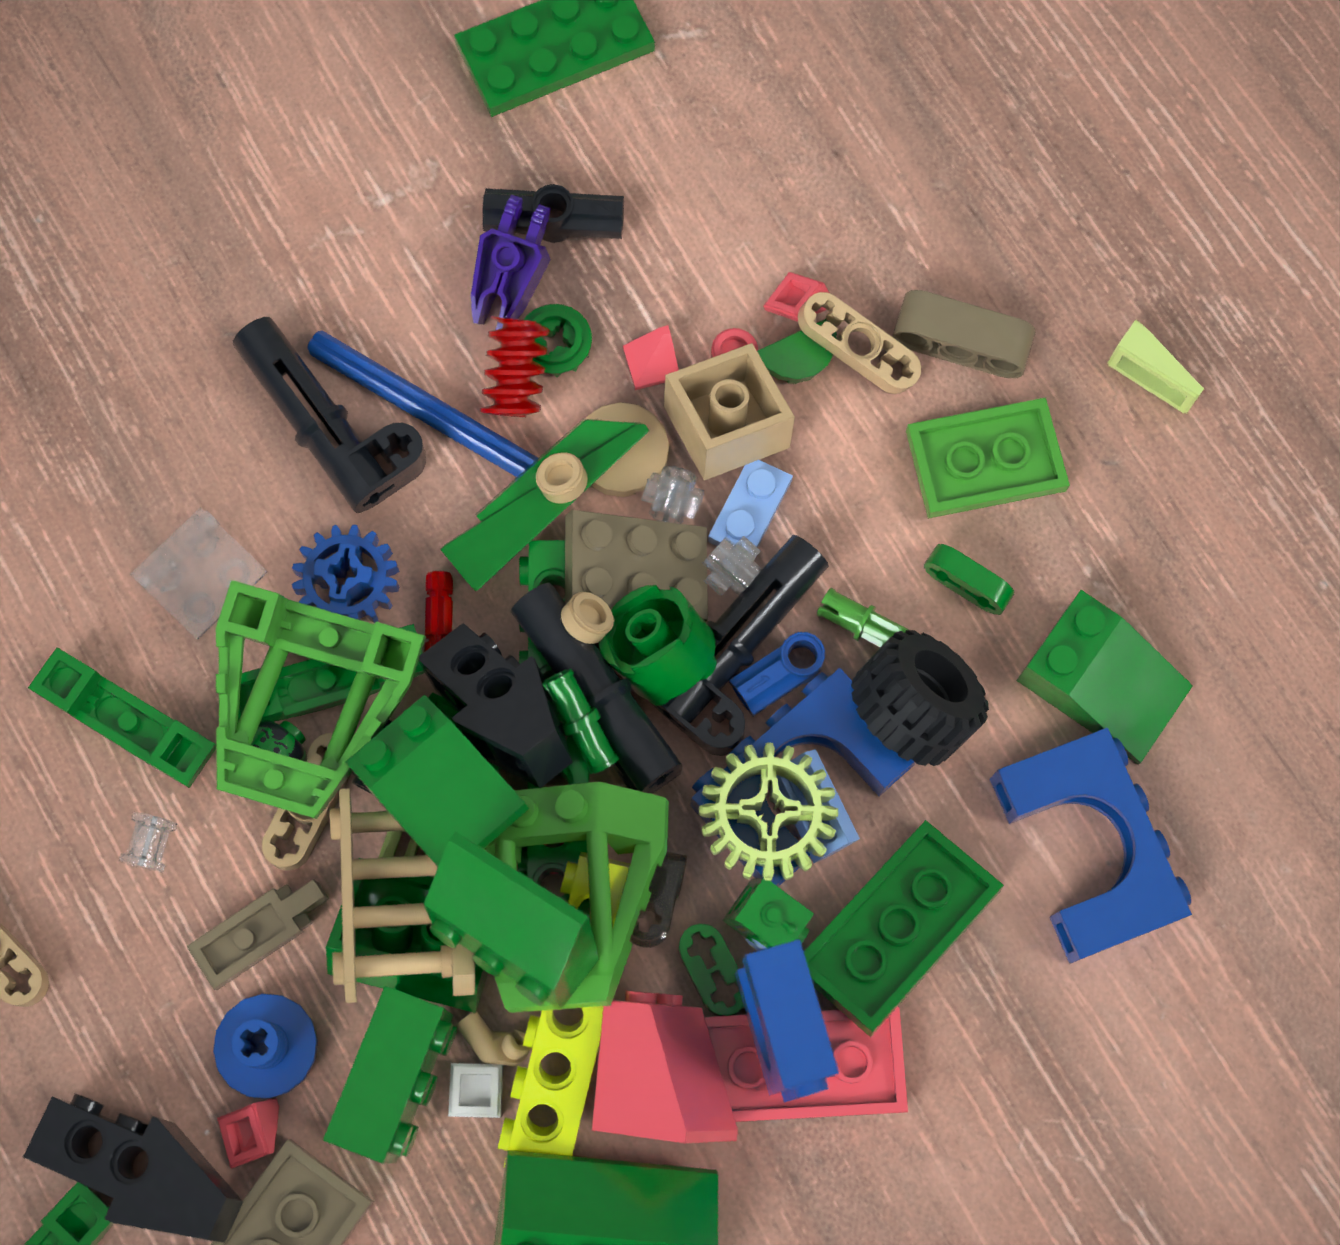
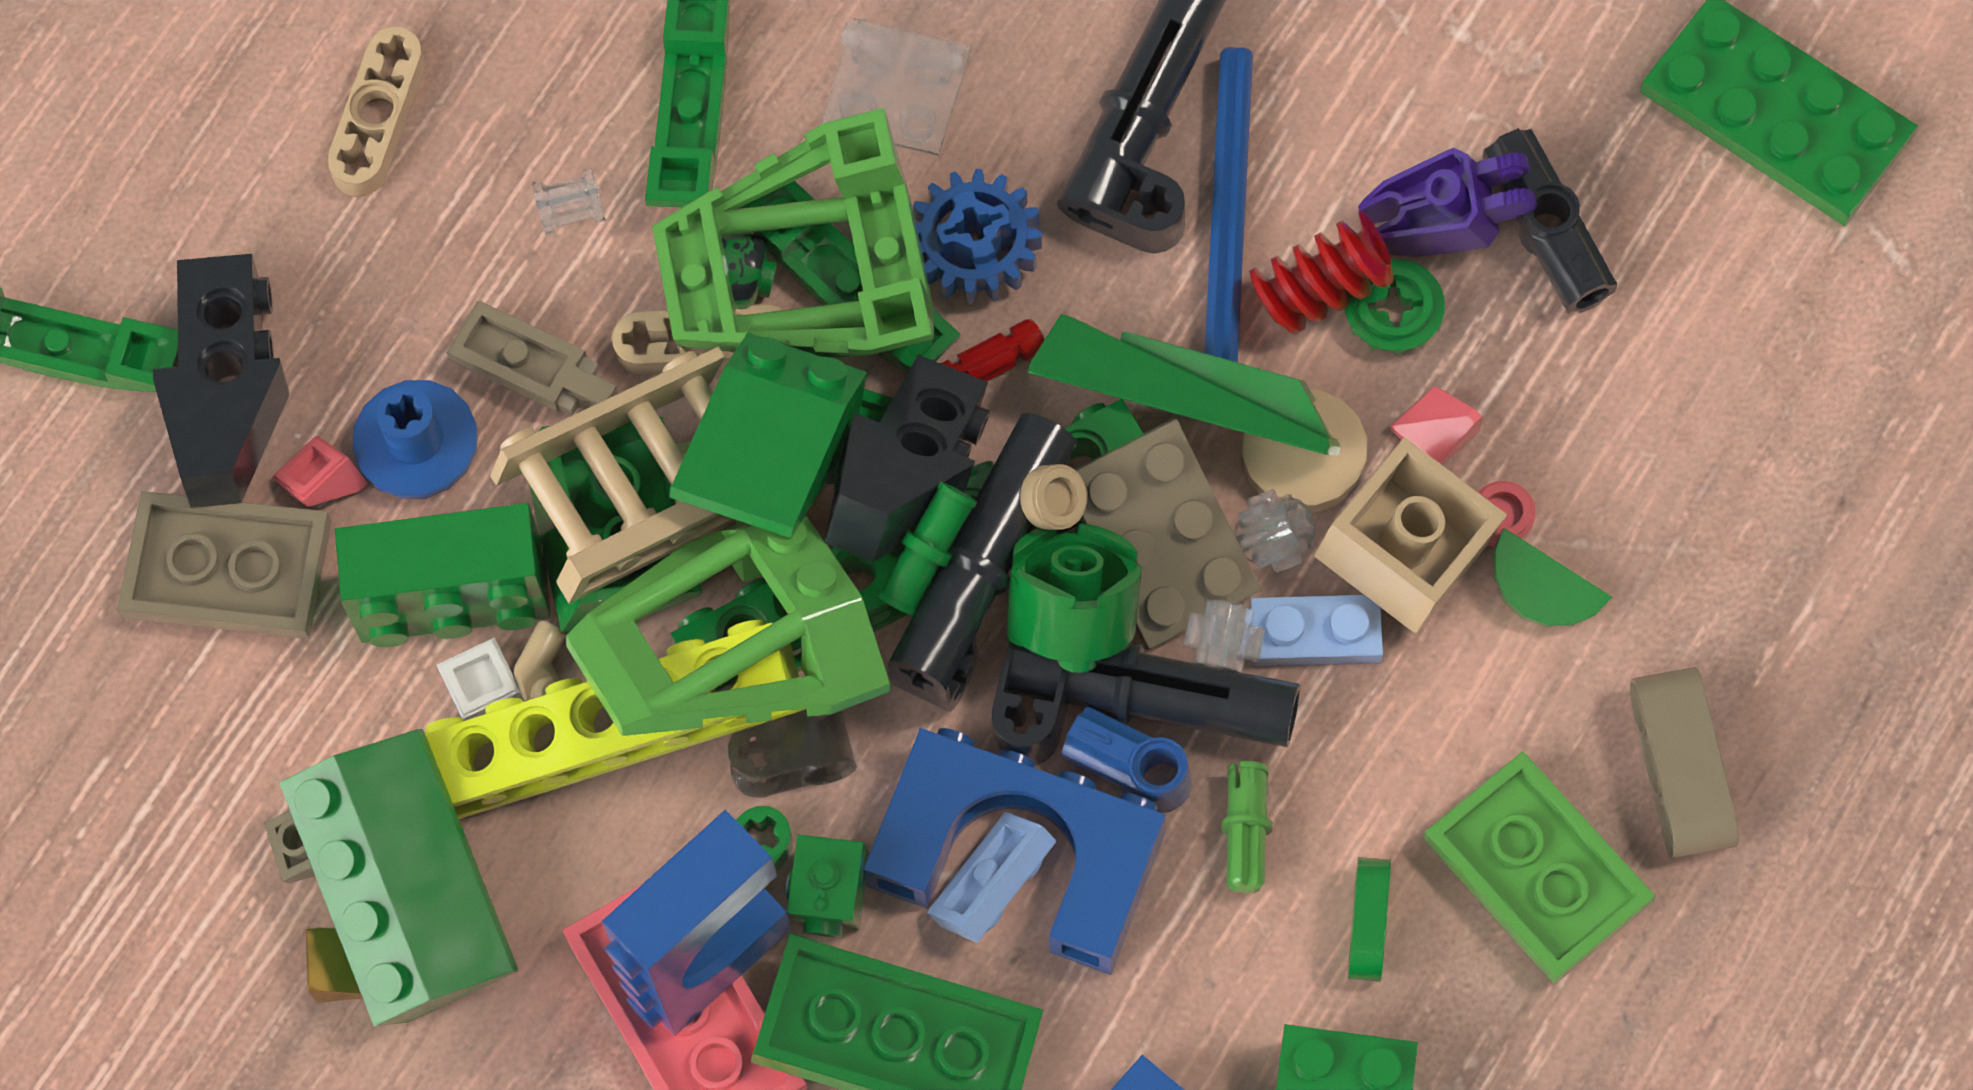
camera: 70 degrees right, 5 degrees down
(510, 923) = (643, 575): green slope -> none
(561, 478) = (1211, 390): tan tile -> none
(660, 1073) = (585, 842): coral slope -> none
(791, 811) = (961, 797): yellowish green gear -> none
(792, 294) = (1616, 552): coral slope -> none
(839, 312) = (1580, 595): tan beam -> none
(919, 698) = (1136, 913): black tyre -> none
(1154, 368) = (1780, 990): yellowish green slope -> none

